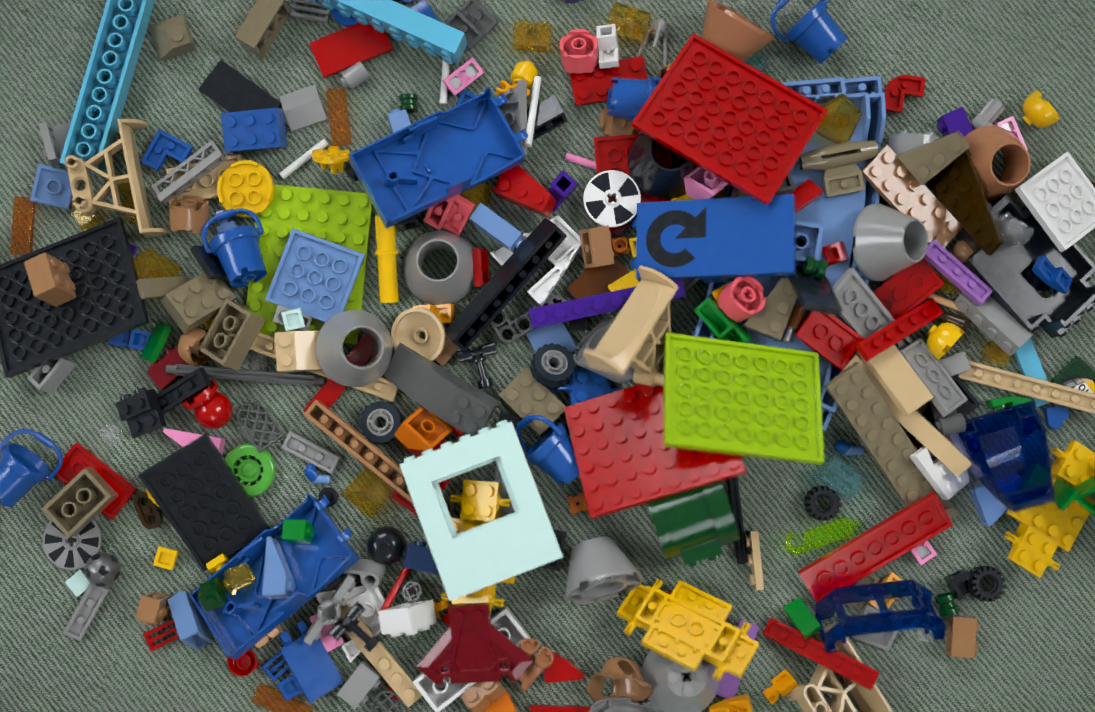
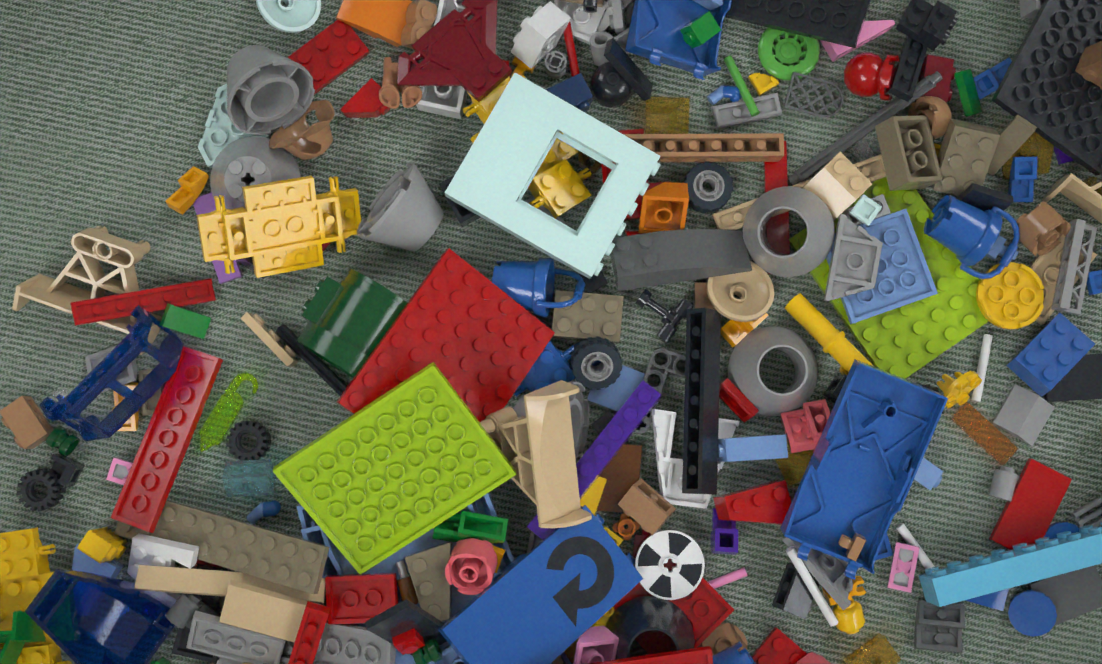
camera: 140 degrees right, 0 degrees up
(171, 257) = (1022, 178): none -> blue slope
(284, 463) = (762, 82): none -> yellow tile
(300, 472) = (741, 86): none -> bright green bar
(330, 293) = (852, 261): none -> light grey wing
(331, 494) = (698, 87): black tile -> none
(368, 544) = (628, 69): none -> black tile
(408, 102) = (932, 500): dark green wheel -> none
(486, 114) = (853, 545): none -> medium nougat tile
(576, 508) = (471, 253): orange plate -> none
(782, 684) = (158, 248): light orange plate -> none
(821, 282) = (408, 642): none -> red plate
(972, 511) = (102, 545): none -> yellow brick

